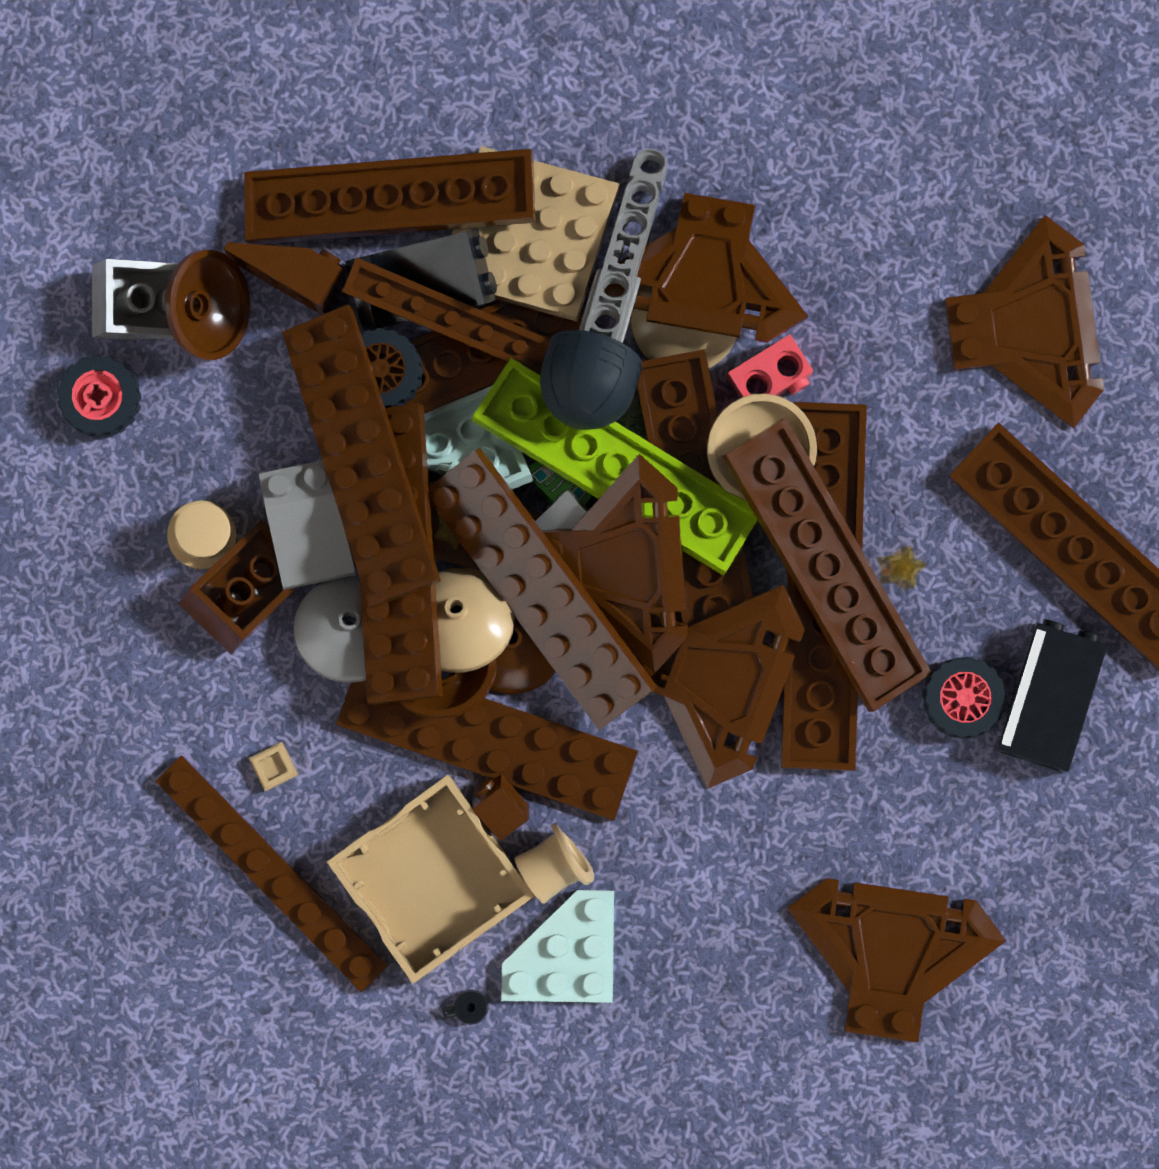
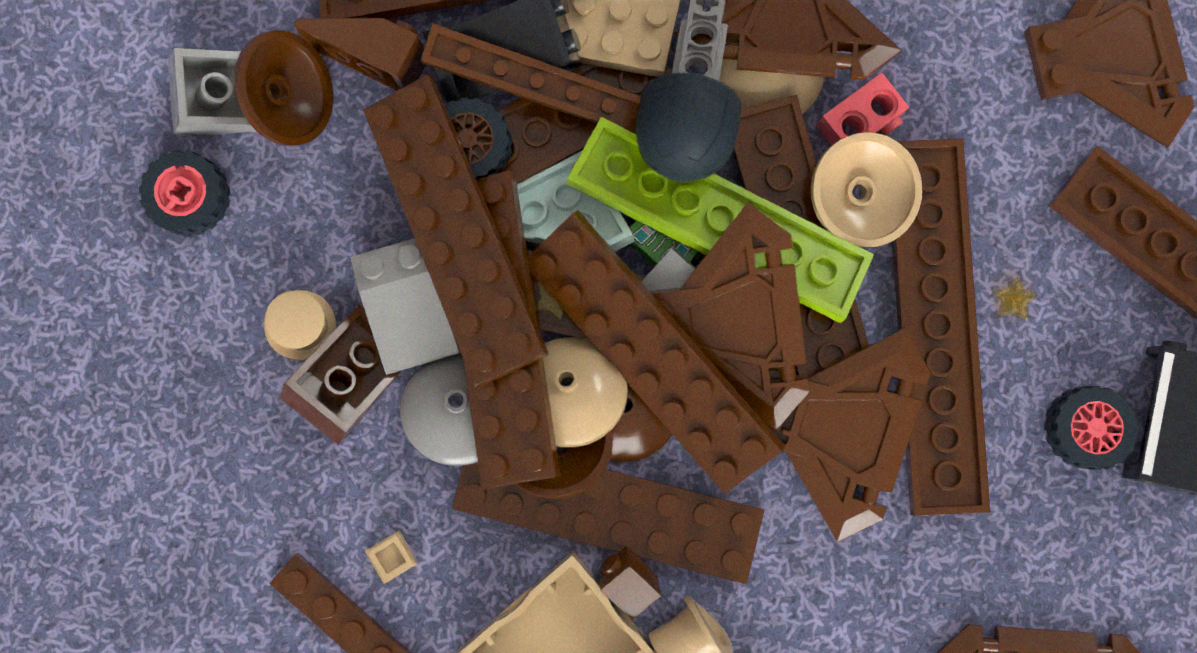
camera: 10 degrees left, 0 degrees up
(827, 565) = (945, 302): reddish brown plate -> none

